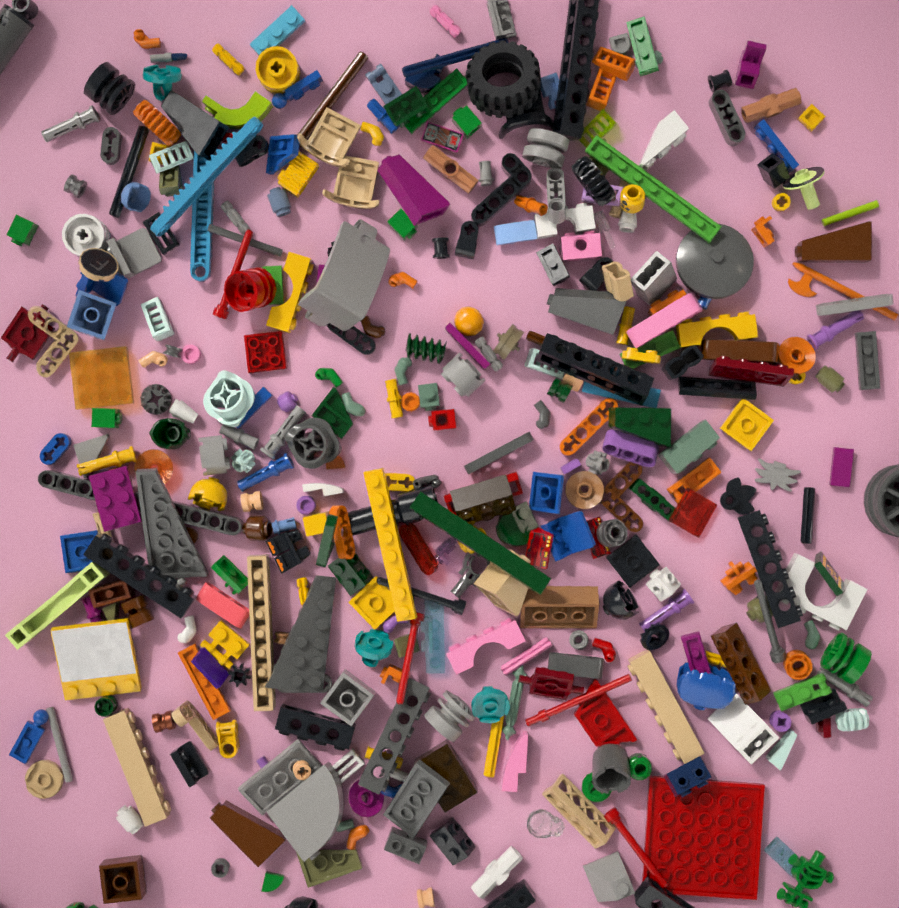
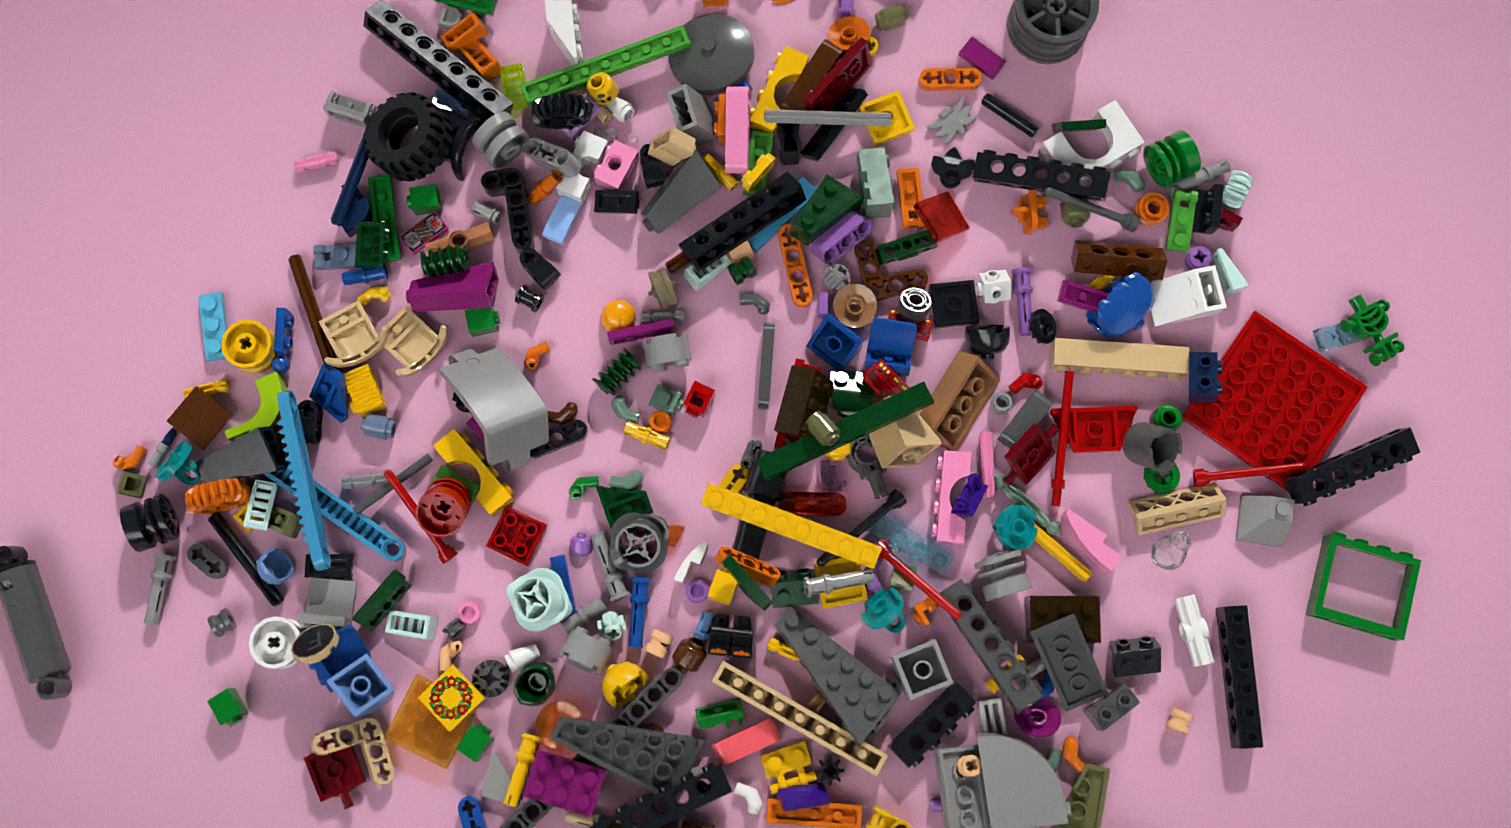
camera: 60 degrees left, 10 degrees down
(124, 382) = (451, 698): none -> tile
(129, 53) = (131, 484): none -> olive slope
(160, 288) = (382, 600): none -> dark green piece
(205, 69) = (199, 418): none -> reddish brown tile
(366, 595) = (828, 583): none -> light grey pin
(427, 171) = (445, 262): none -> dark green piece
(470, 527) = (823, 428): none -> olive brick
(492, 659) = (970, 496): none -> dark purple hinge
(715, 382) = (827, 117): none -> light grey axle
(805, 438) = (943, 86): none -> orange beam

